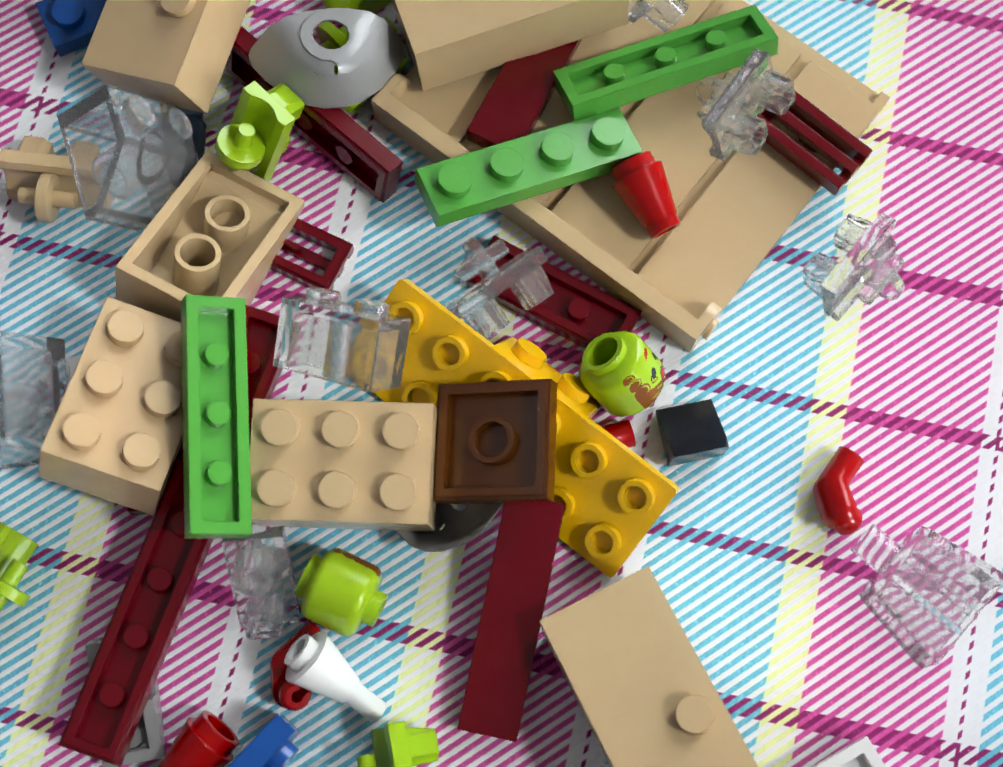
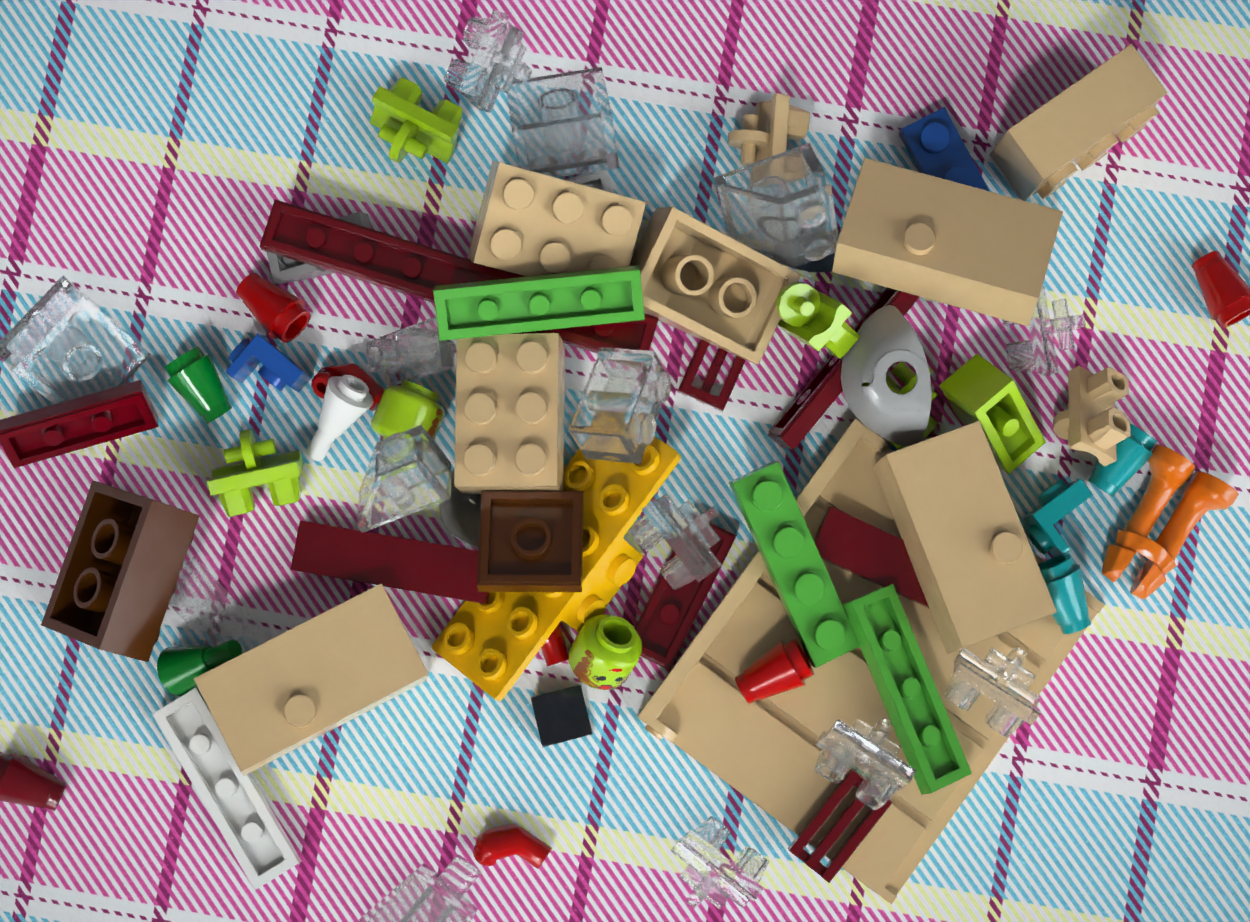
camera: 90 degrees right, 10 degrees up
(415, 598) = (403, 478): none -> clear slope

